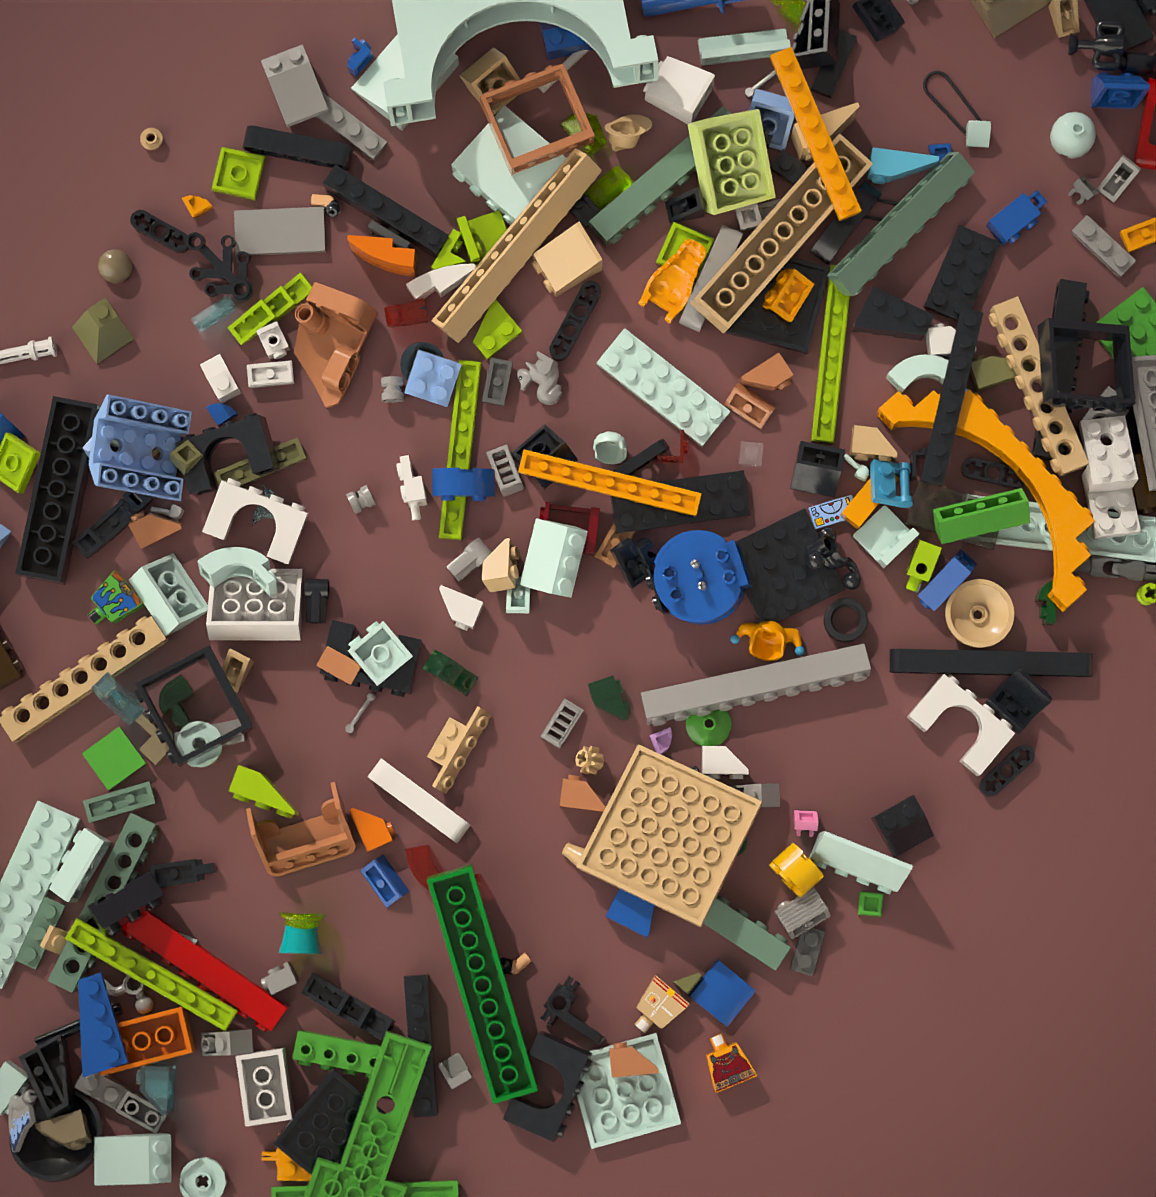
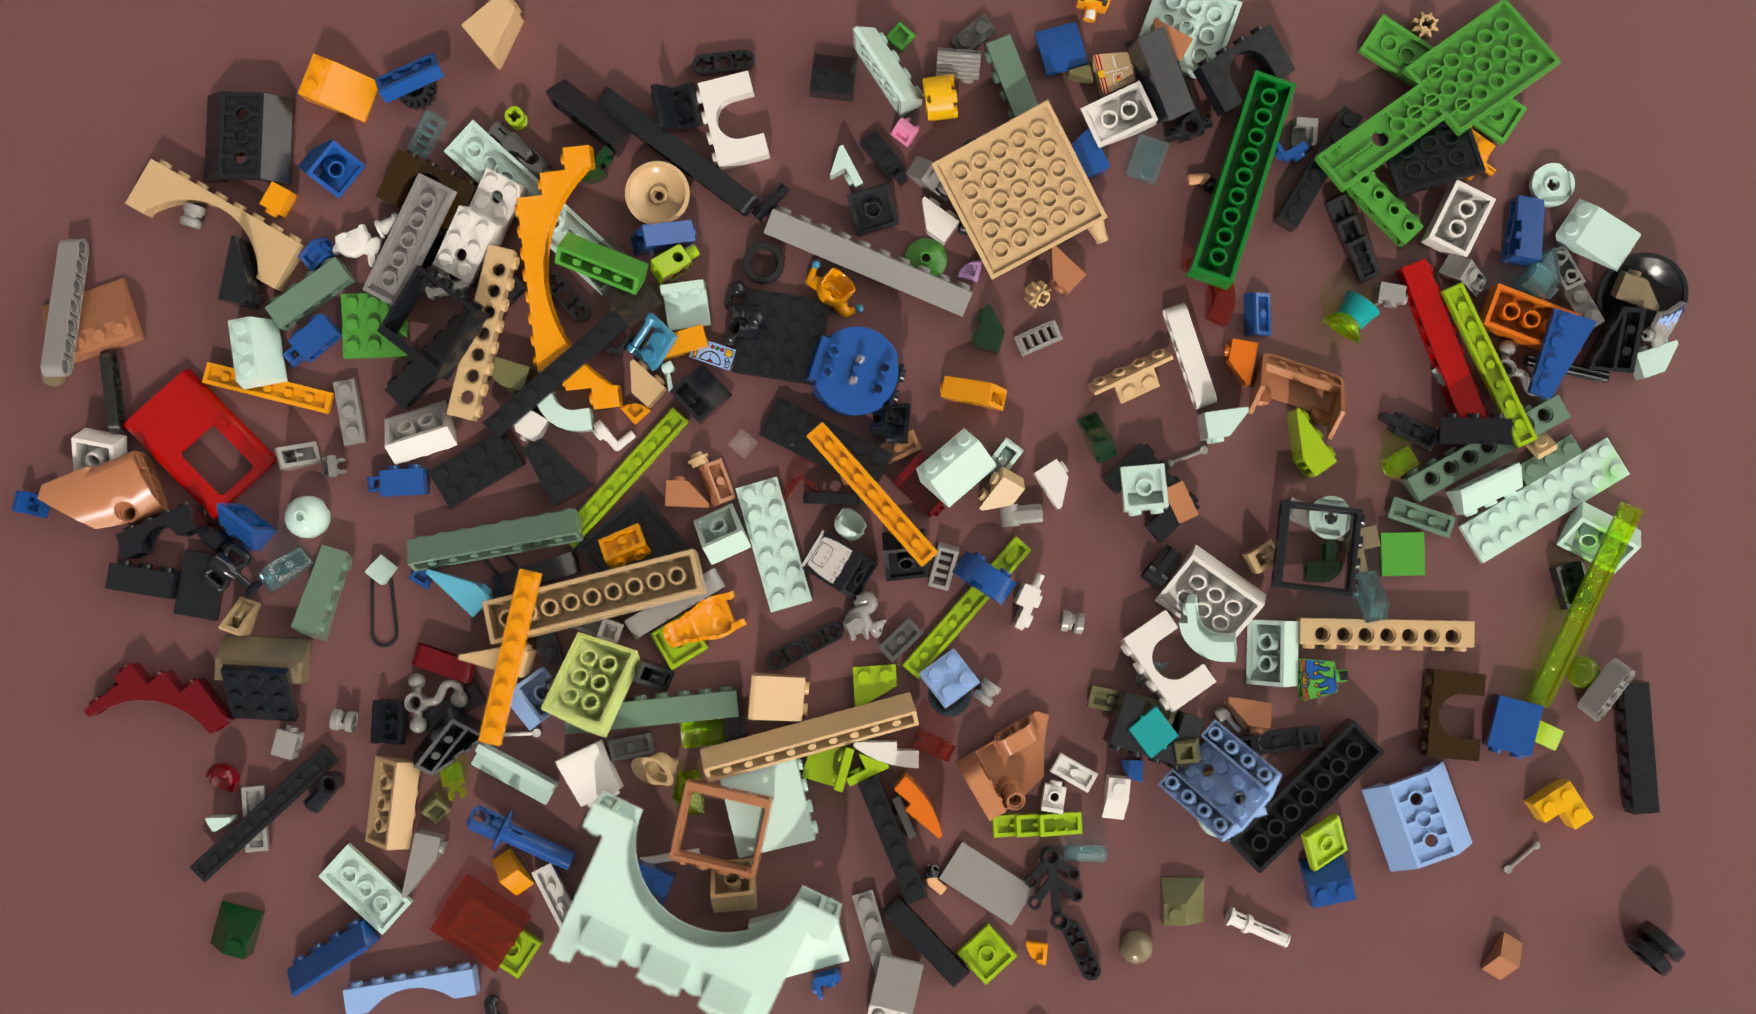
camera: 140 degrees left, 5 degrees up
(171, 836) = (1399, 462): none -> clear neon green brick
(200, 1120) = (1523, 231): none -> blue wedge
(227, 450) = (1153, 732): none -> teal piece
(351, 757) = (1219, 424): none -> light aqua slope
(449, 1046) = (1295, 153): none -> blue bracket
(577, 948) = (1147, 159): none -> clear light blue plate
(583, 635) = (973, 392): none -> light orange slope
(595, 407) = (838, 565): none -> slope
(617, 1026) = (1160, 74): none -> black slope
(629, 966) = (1119, 115): none -> white slope
(661, 135) = (631, 746): none -> dark grey plate
(714, 364) = (721, 534): none -> light aqua slope
(779, 413) = (698, 459): none -> tan plate
(785, 733) = (872, 209): none -> black slope
(807, 786) = (884, 157): none -> black hinge
(839, 755) = (844, 164): none -> light aqua slope
(862, 416) = (635, 411): none -> light orange tile
(871, 93) = (442, 663): none -> dark red beam
(876, 379) = (603, 432): none -> white plate
(878, 677) = (770, 201): none -> black pin
(879, 63) = (416, 682): none -> light grey piece
(1012, 80) = (322, 593): none -> sand green wedge
(1031, 269) = (419, 432): none -> white slope
(1058, 78) = (285, 569): none -> clear light blue slope
(1086, 639) = (589, 116): none -> black slope

